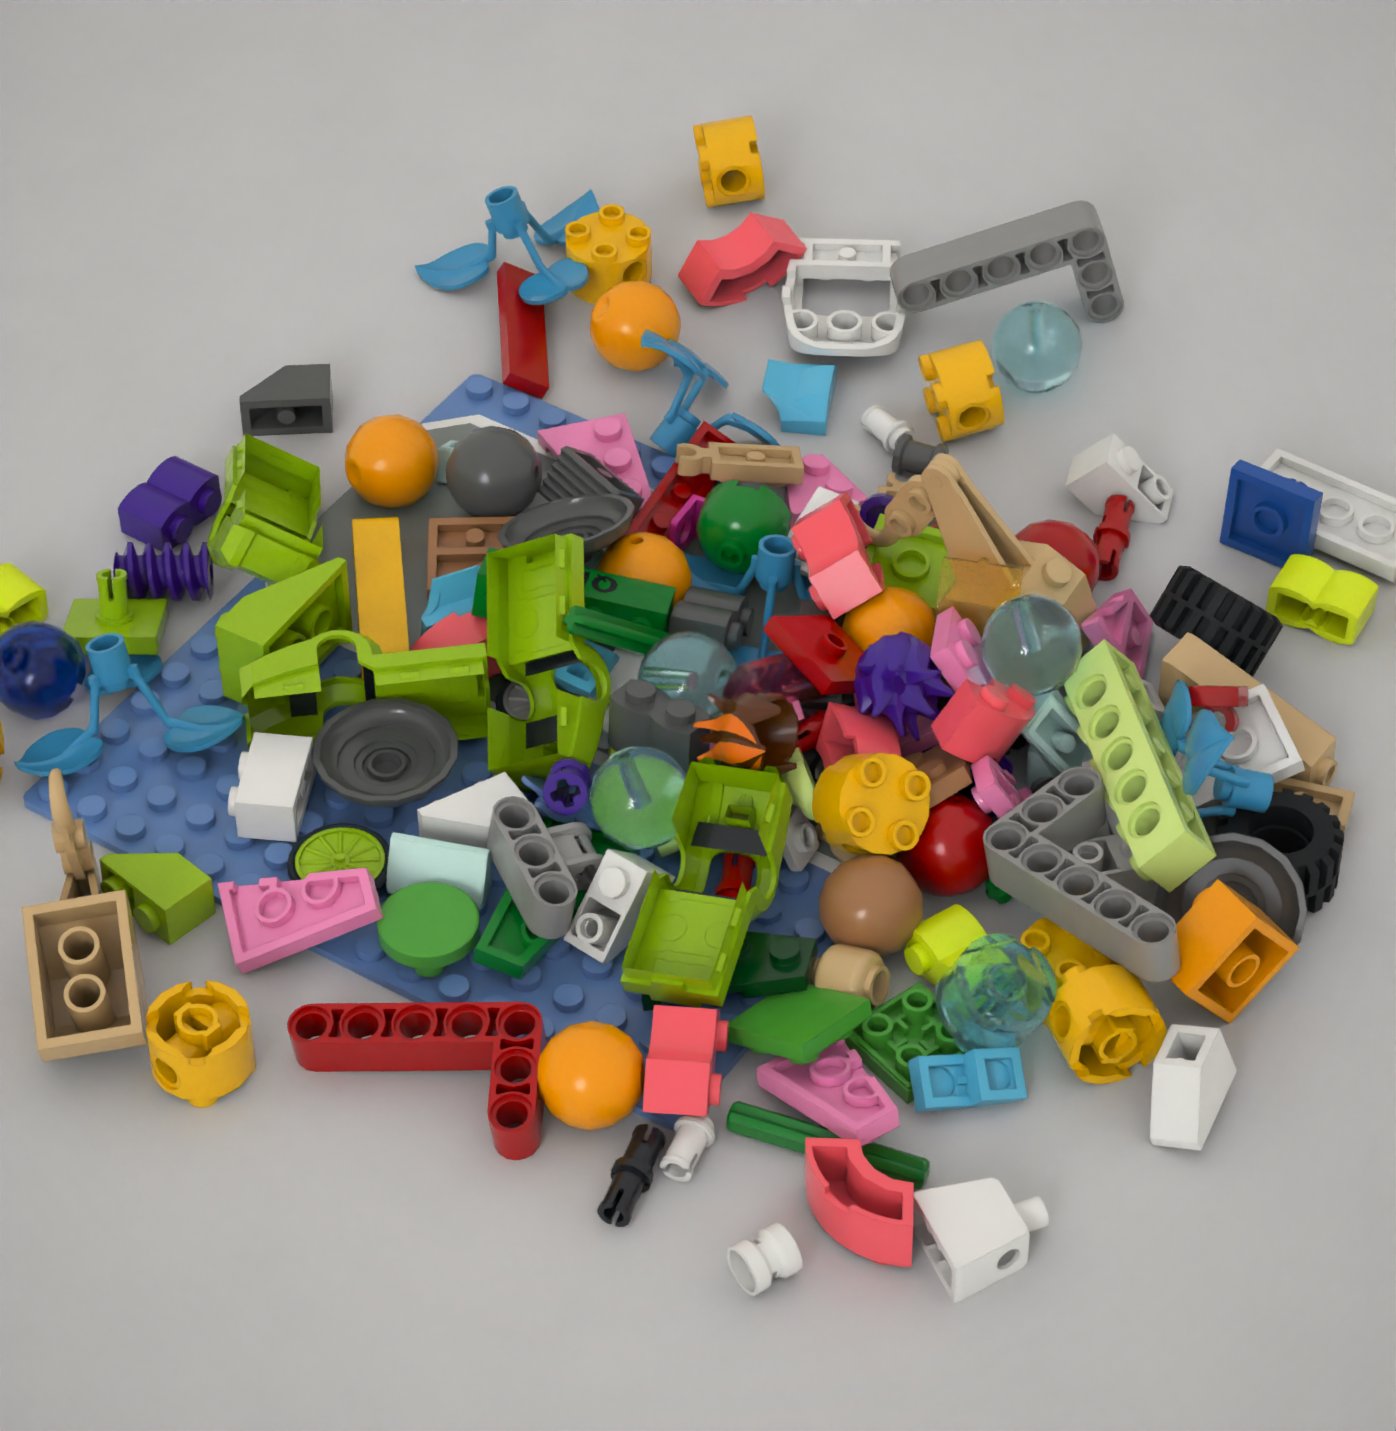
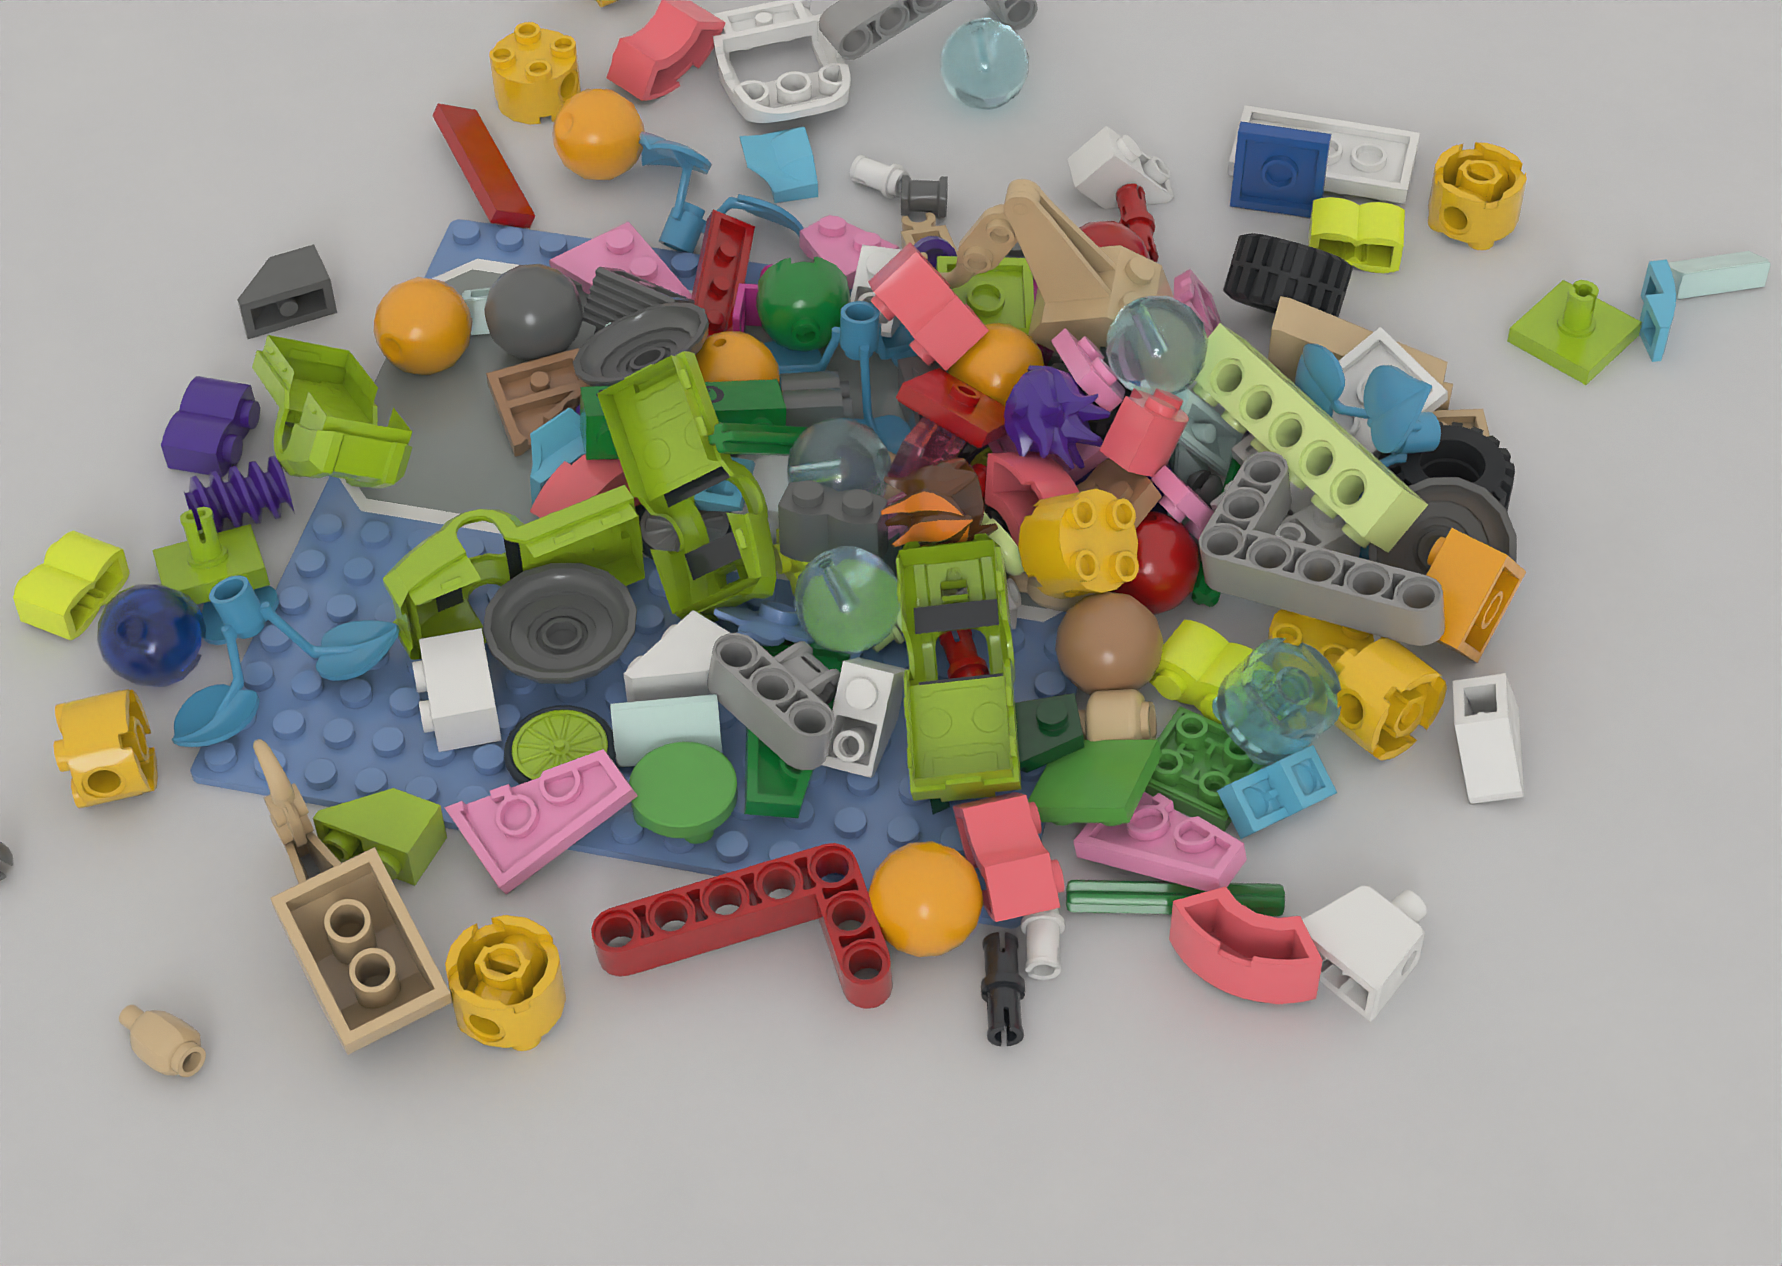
camera: 20 degrees left, 5 degrees up
(282, 617) = (393, 521): lime slope -> none
(380, 583) = (469, 458): yellow beam -> none
(511, 218) = (400, 114): dark azure plant -> none
(559, 798) = (786, 611): dark purple bush -> none
(742, 462) = (770, 241): tan plate -> none
(767, 1257) = (1182, 1031): white wheel -> none
(961, 390) = (937, 120): yellow brick -> none
(976, 588) = (1082, 307): clear yellow piece -> none
(1221, 700) = (1354, 352): red tile -> none

